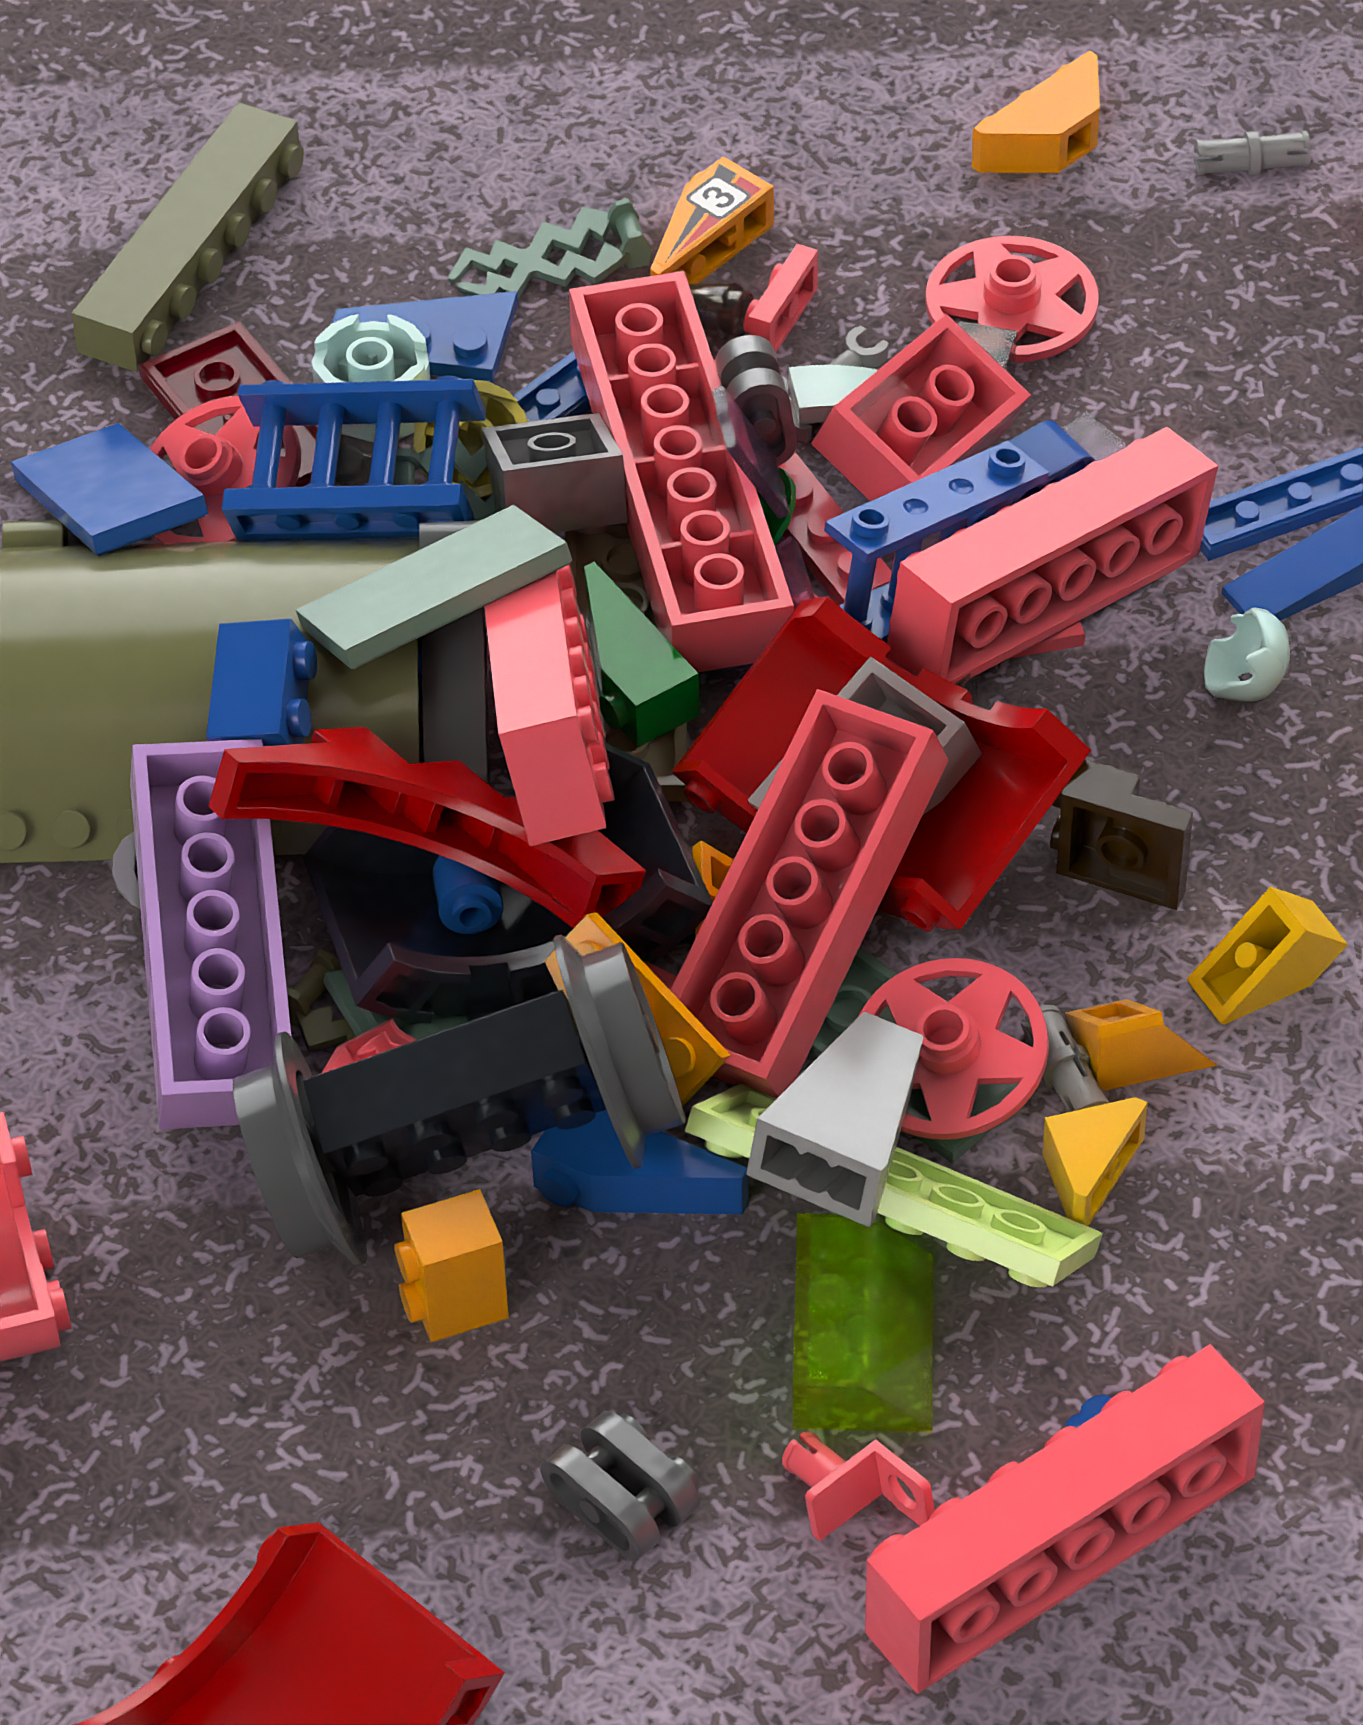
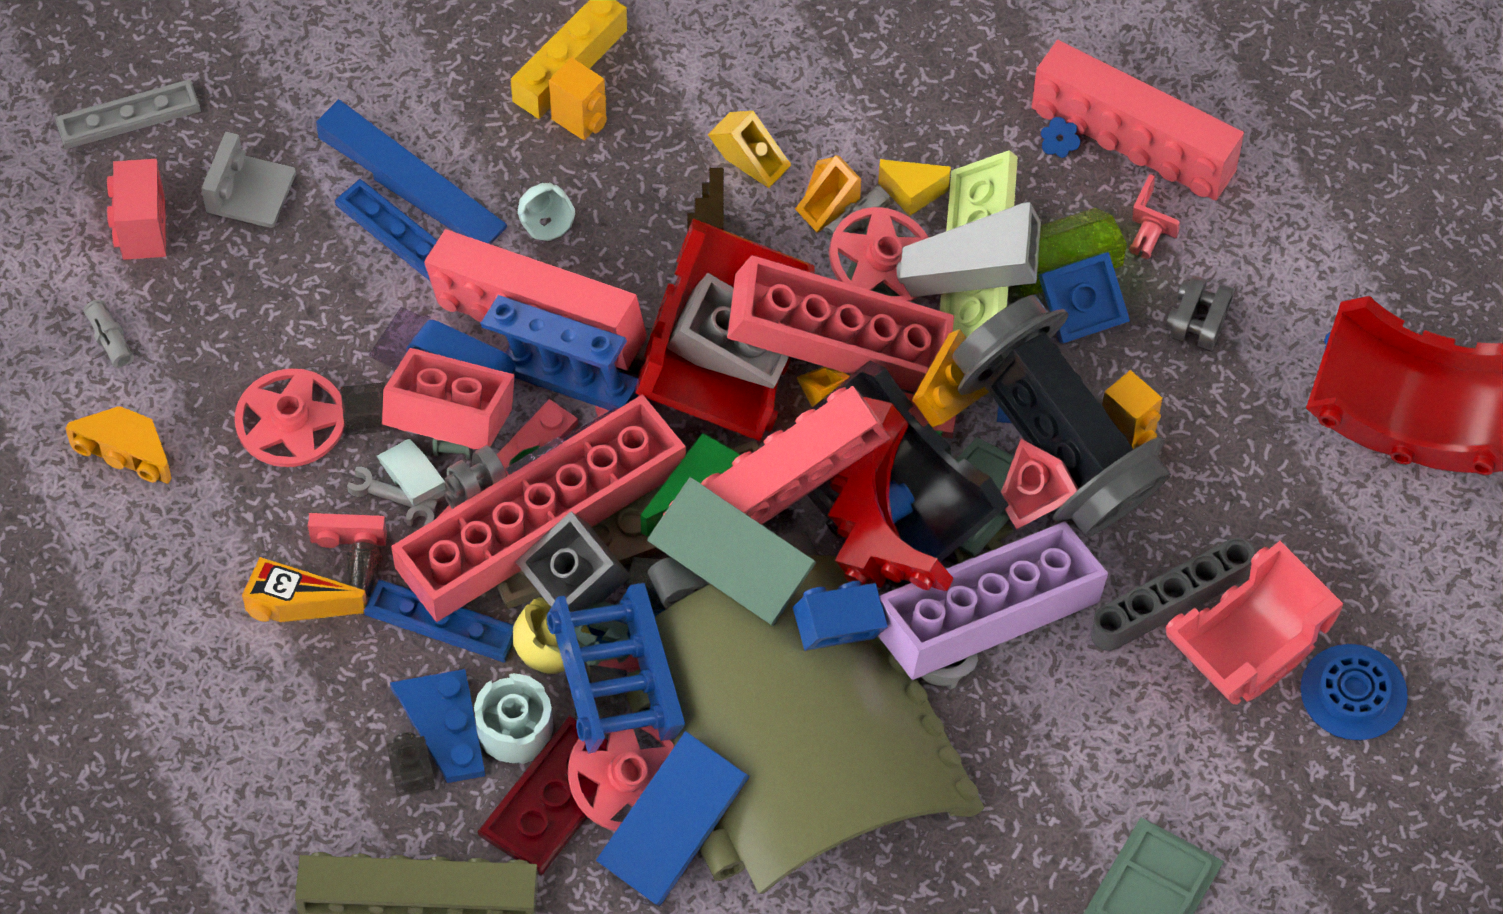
camera: 115 degrees left, 10 degrees up
(104, 1194) = (1179, 580): none -> dark grey beam
(375, 273) = (410, 775): none -> clear smoke brick
(532, 261) = (354, 691): piece -> none
(729, 1305) = (1088, 294): none -> blue plate

